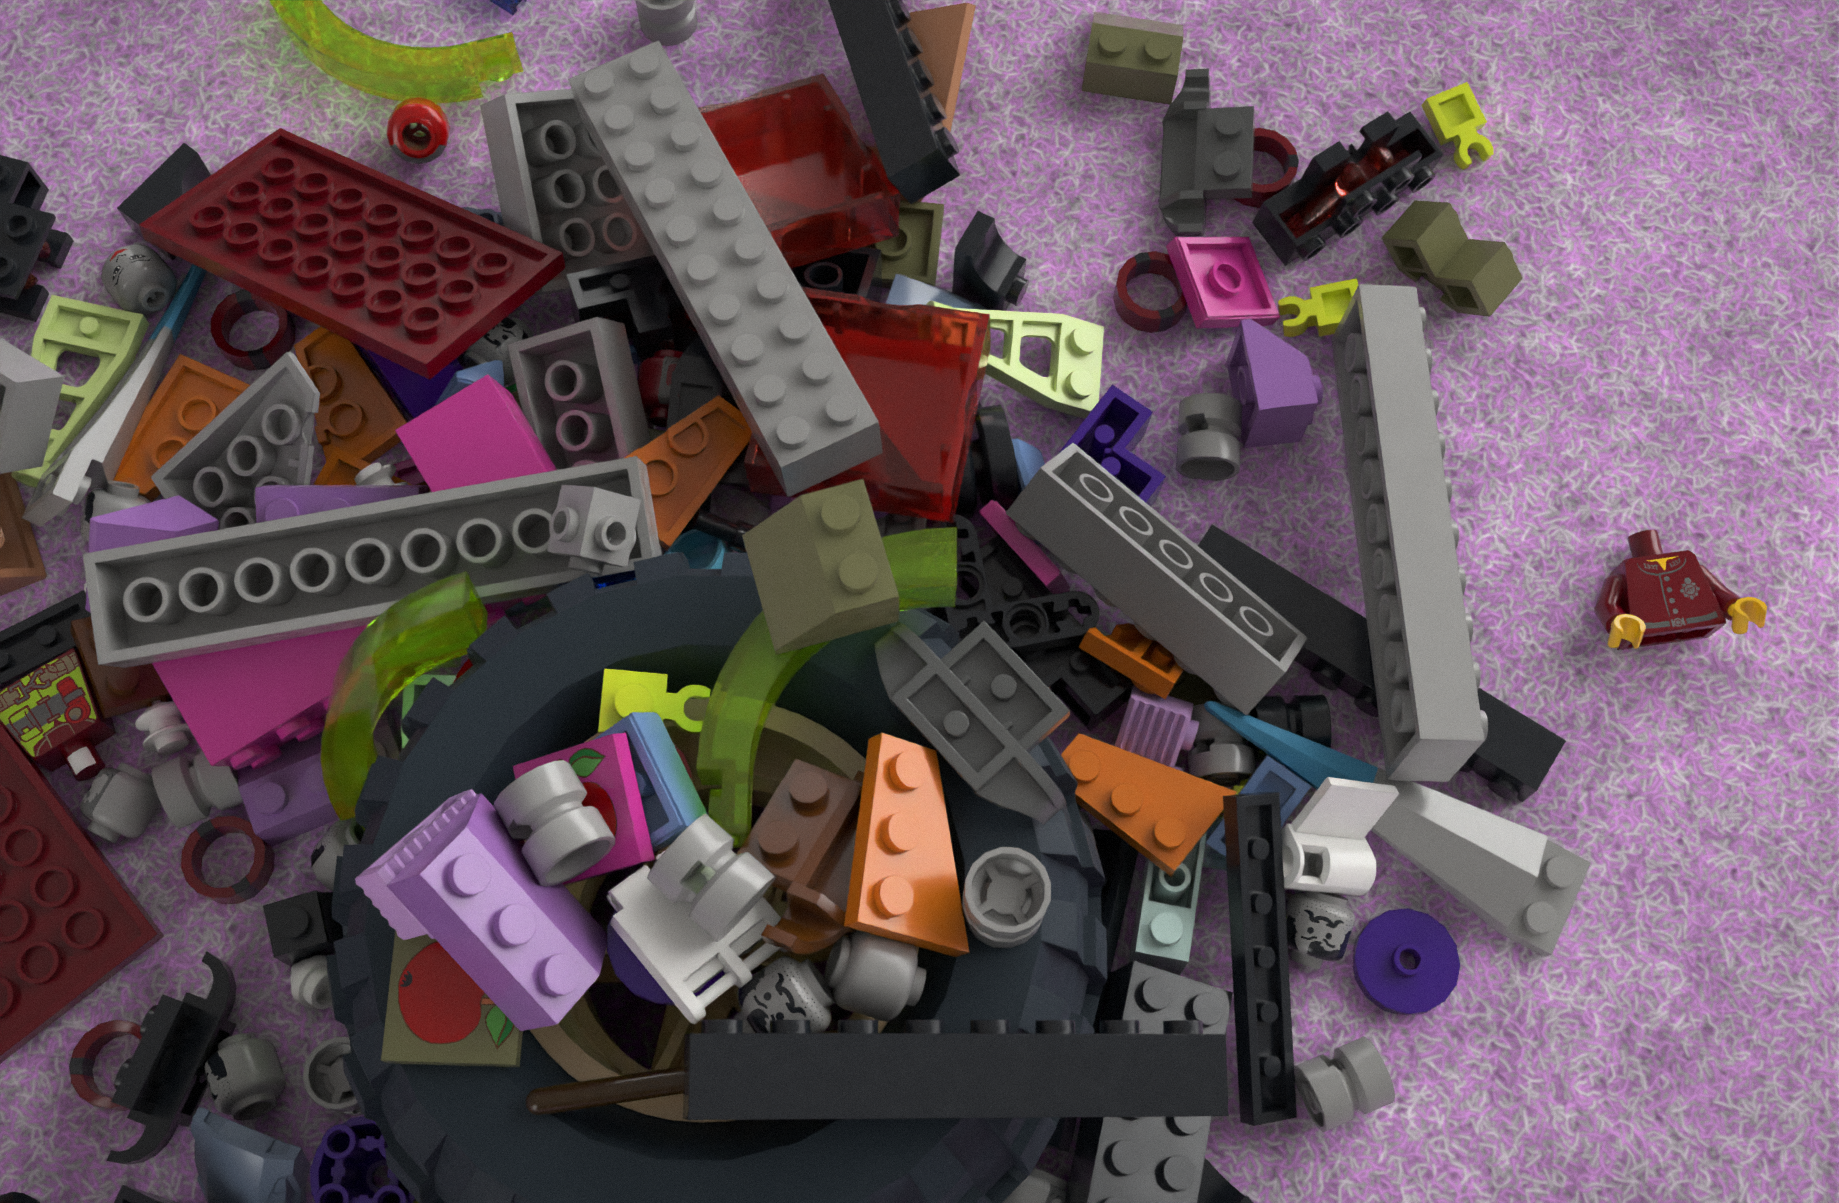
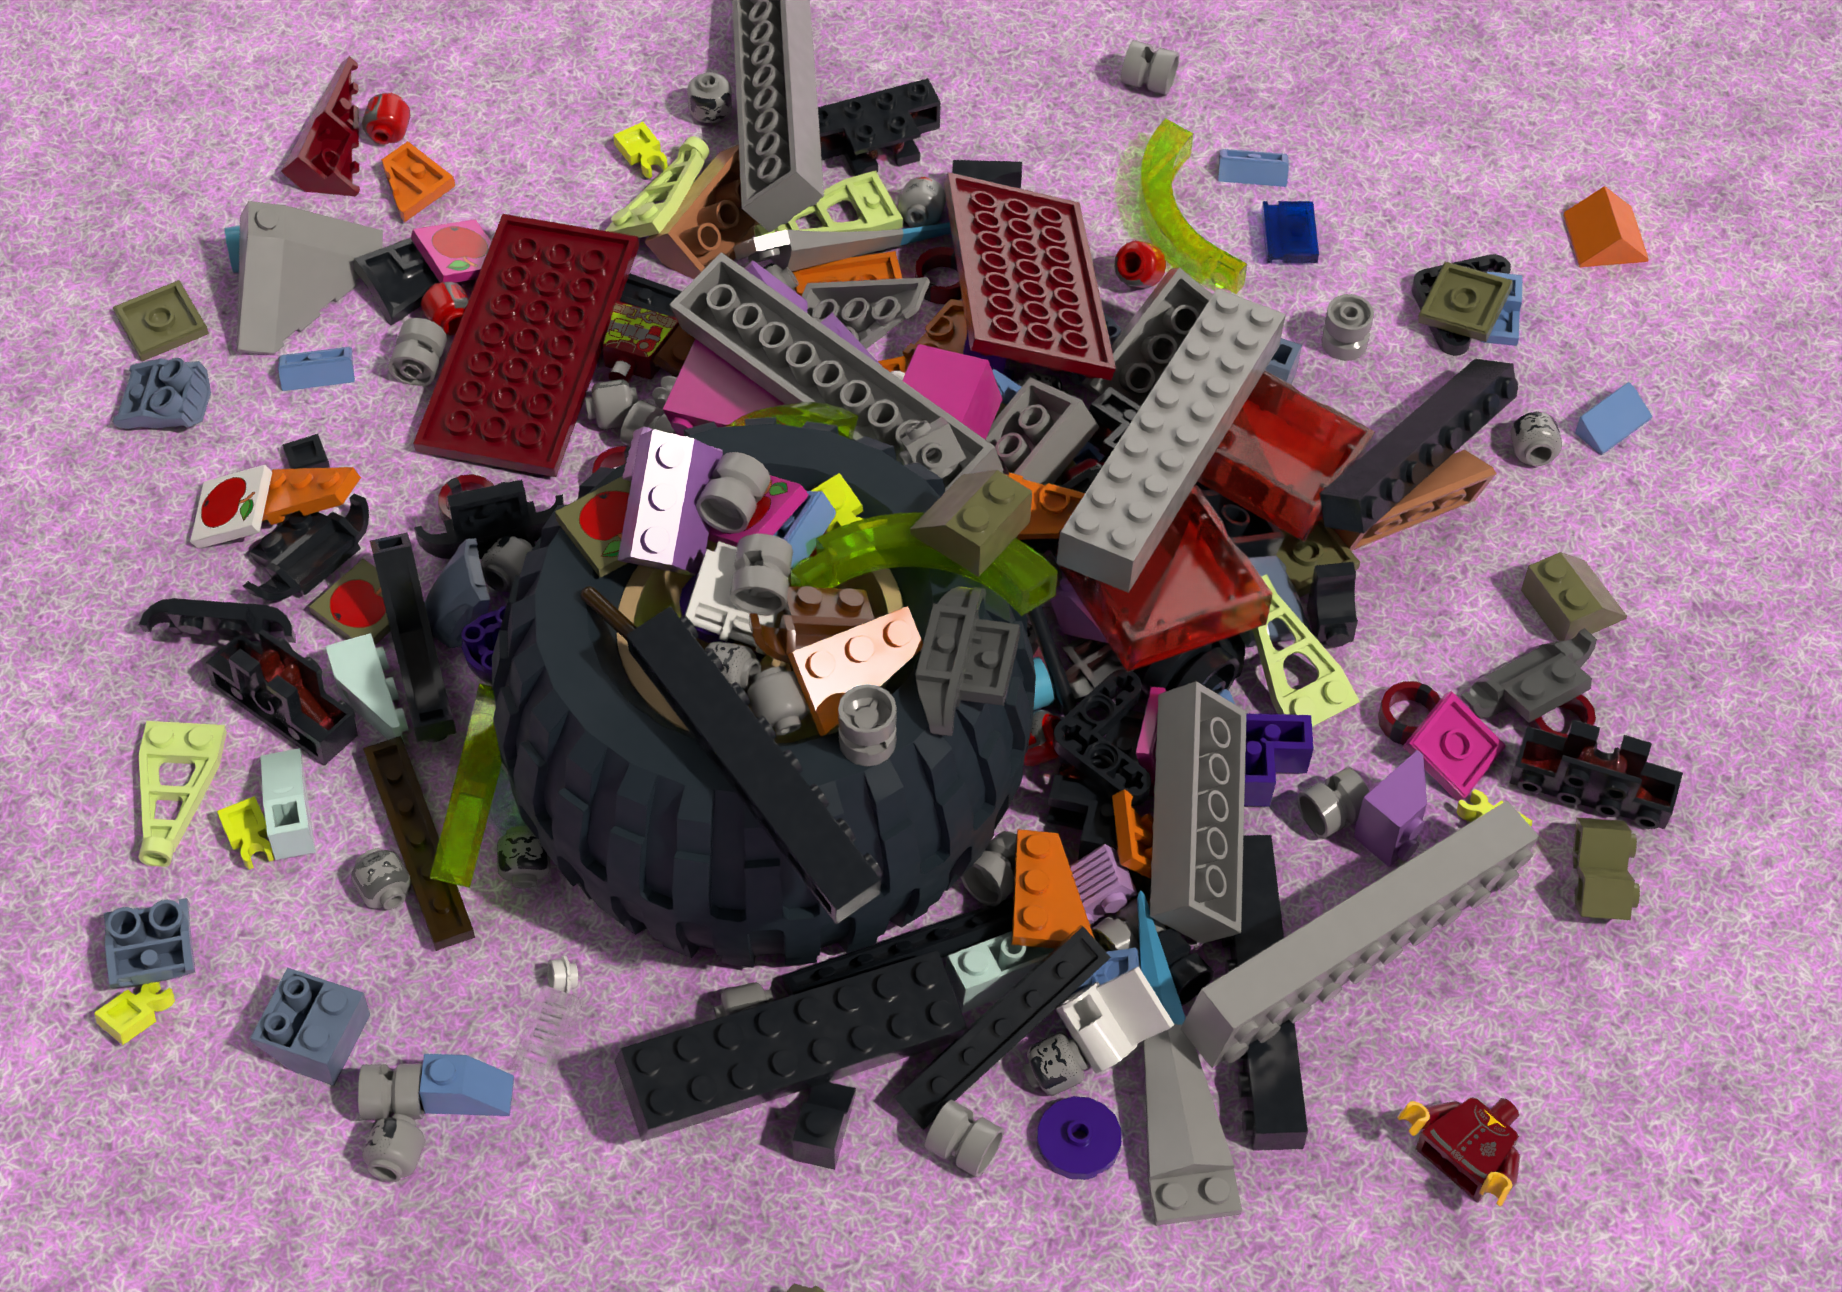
camera: 55 degrees right, 15 degrees down
(1457, 118) = (1717, 815): neon yellow plate -> none

